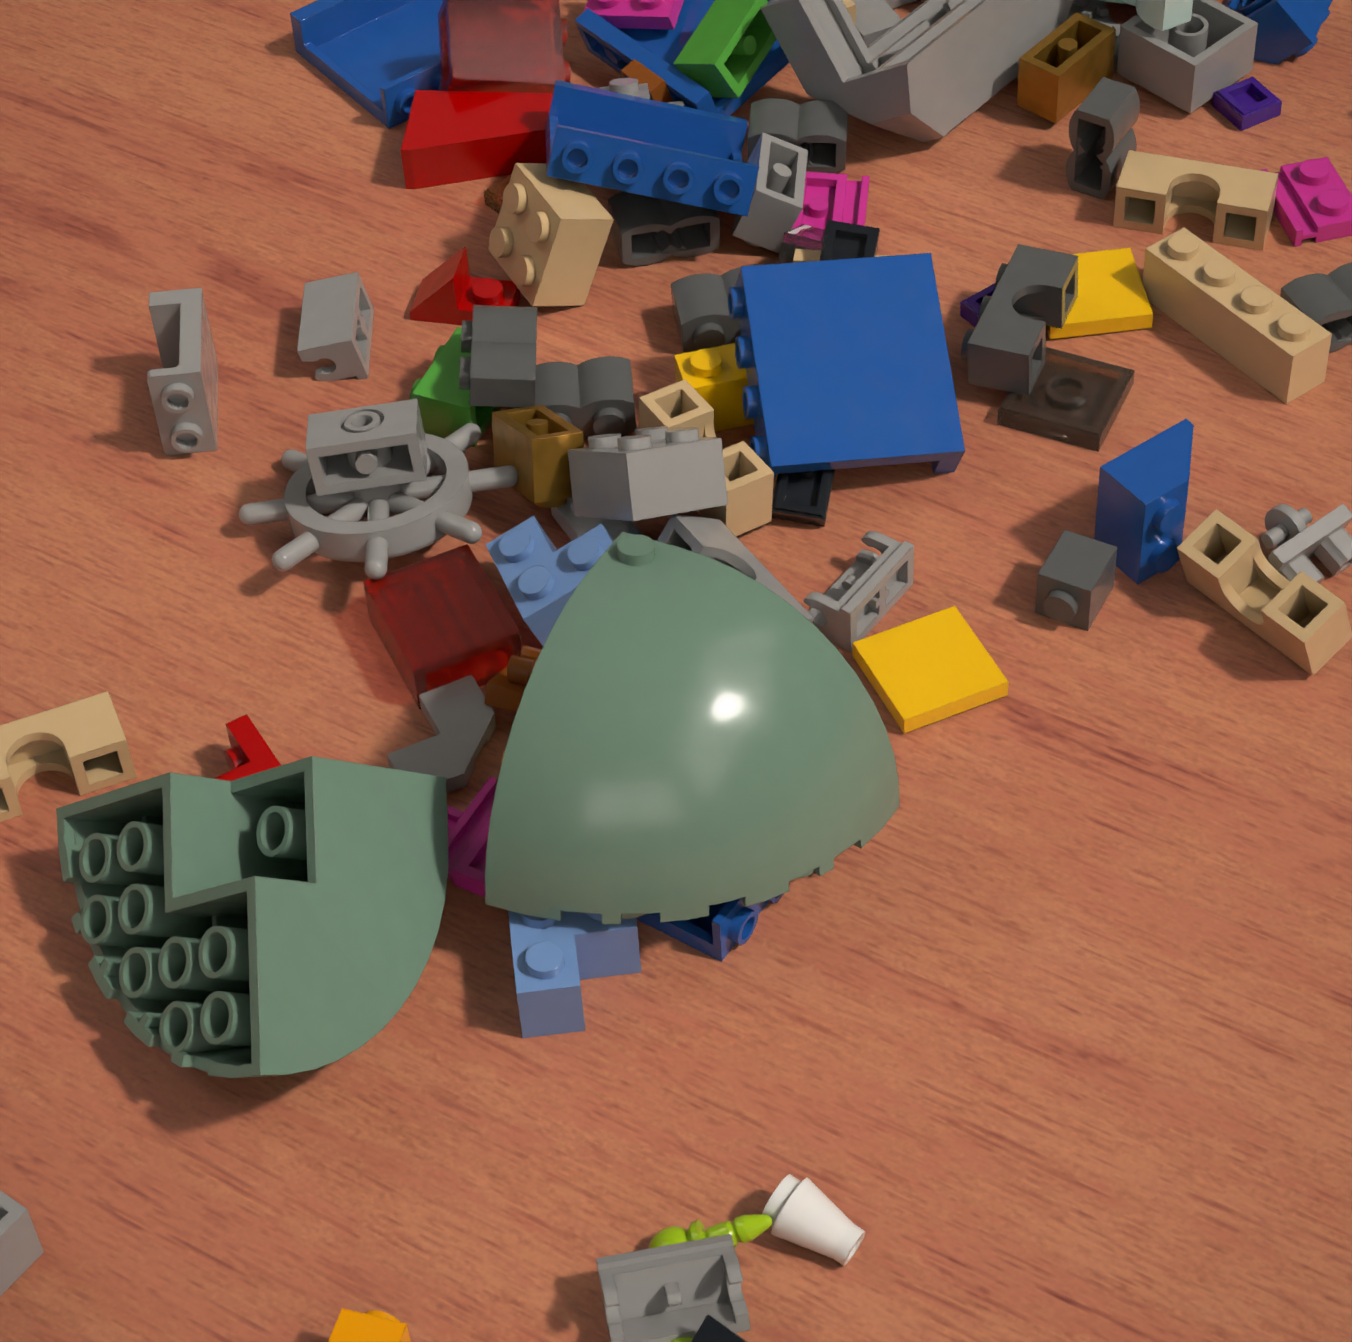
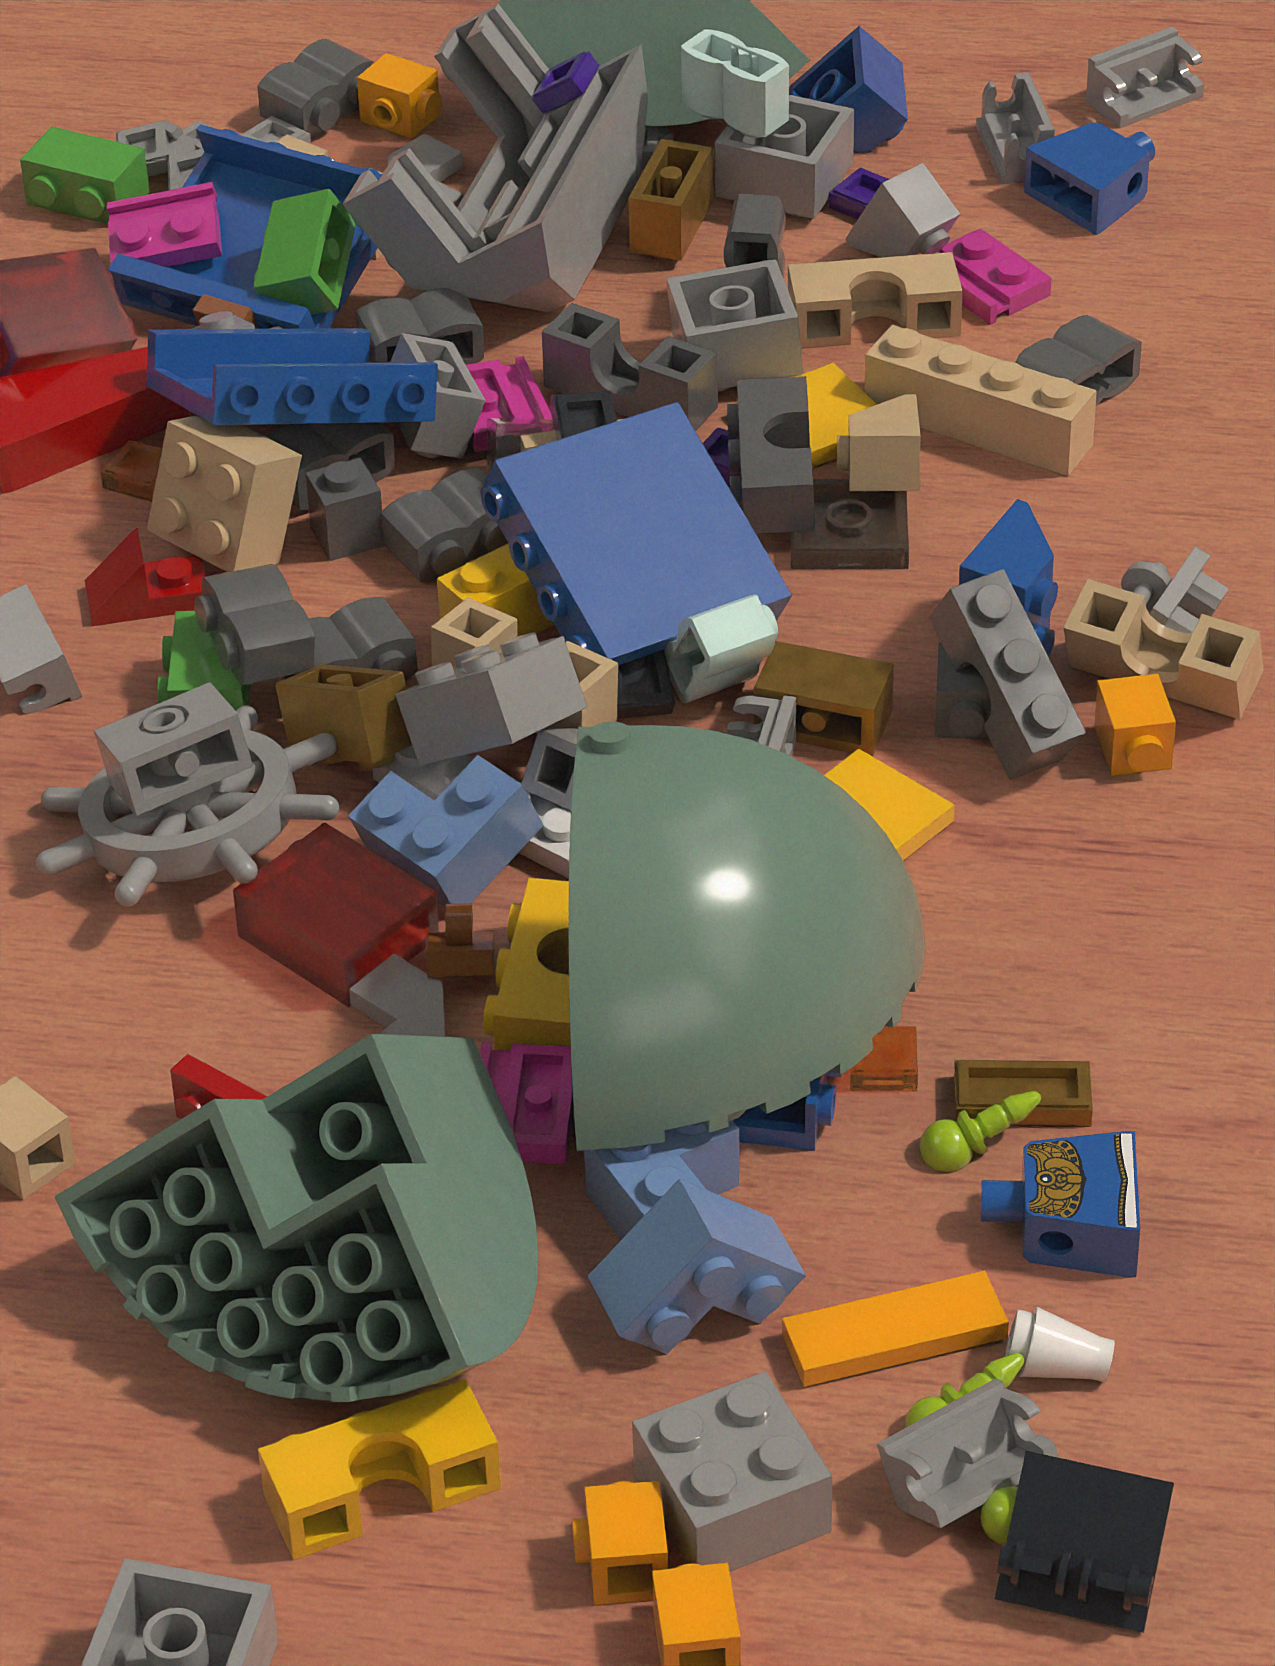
camera: 25 degrees left, 5 degrees down
(147, 1120) = (428, 1440): none -> yellow arch
(350, 1265) = (622, 1540): none -> light orange brick
(466, 1242) = (734, 1474): none -> light grey brick
(542, 1032) = (693, 1256): none -> medium blue brick
(648, 272) = (344, 508): none -> dark grey brick
(689, 1150) = (894, 1328): none -> light orange tile
(822, 900) = (890, 1064): none -> clear orange tile
(834, 995) = (951, 1144): none -> lime bar
(875, 481) = (720, 647): none -> light aqua brick
(903, 1088) = (1074, 1203): none -> blue torso
(923, 968) = (1062, 1087): none -> pearl gold tile
(954, 550) = (839, 696): none -> pearl gold brick
(967, 234) = (587, 355): none -> dark grey arch
(1053, 194) = (741, 317): none -> light grey brick
(1101, 552) = (1030, 710): none -> arch
(1122, 335) = (882, 447): none -> tan slope
(1206, 654) = (1134, 724): none -> light orange brick
(1257, 131) = (905, 217): none -> light grey slope

